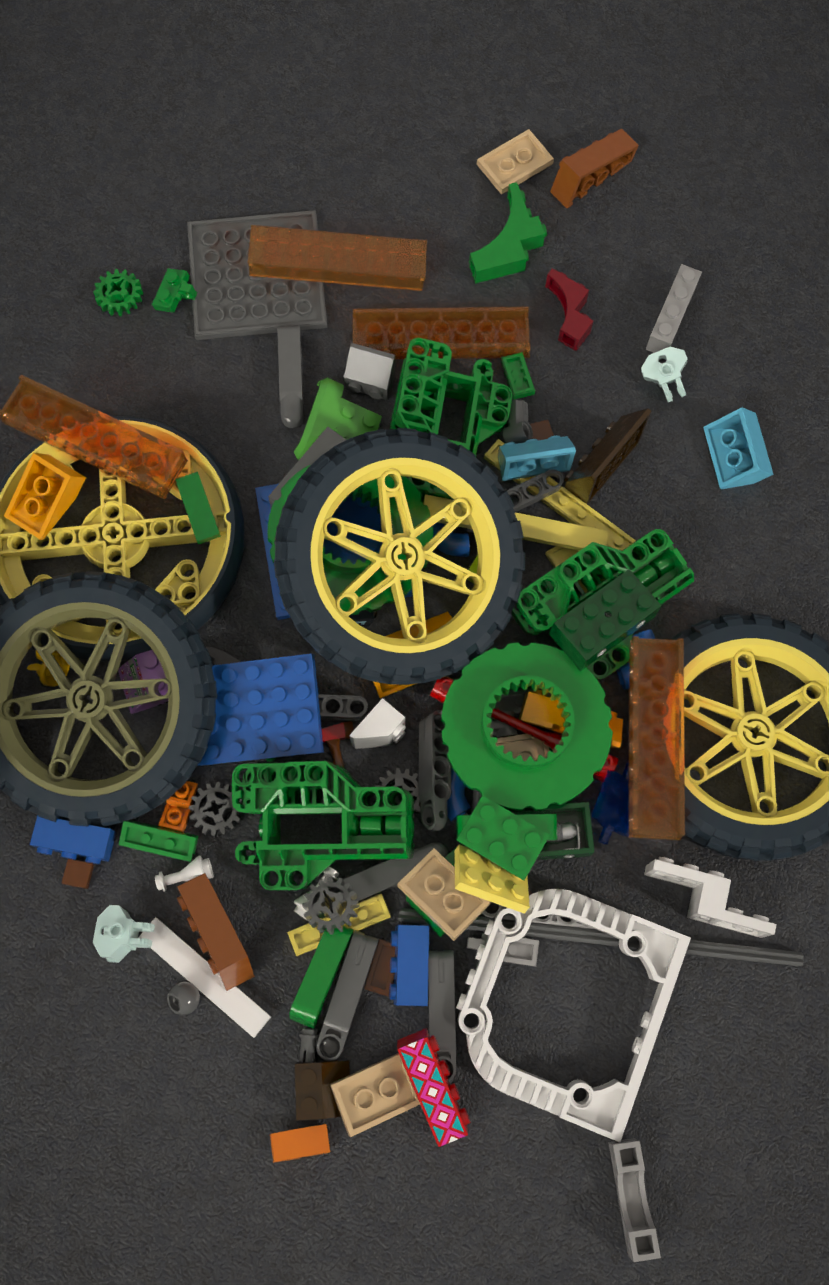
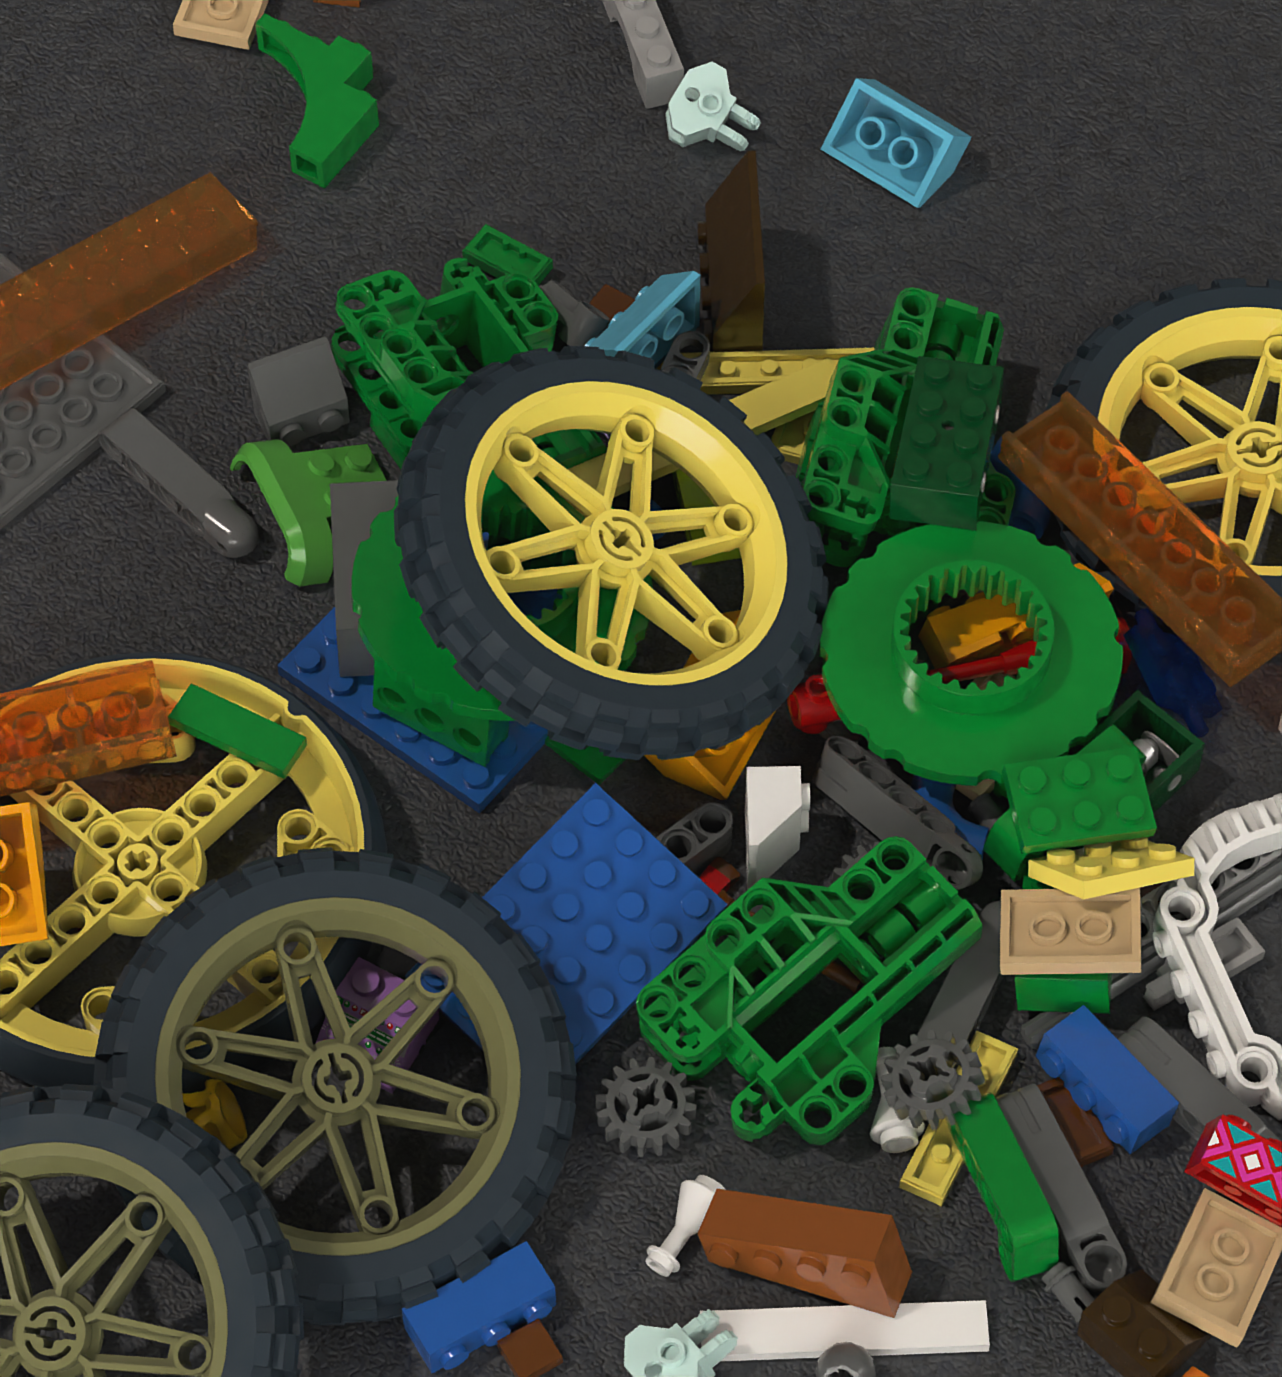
camera: 40 degrees left, 15 degrees down
(158, 840) = (604, 1211): green plate -> none
(177, 808) = (590, 1157): orange slope -> none
(466, 330) = (405, 232): clear orange tile -> none
(573, 298) = (484, 110): dark red arch -> none

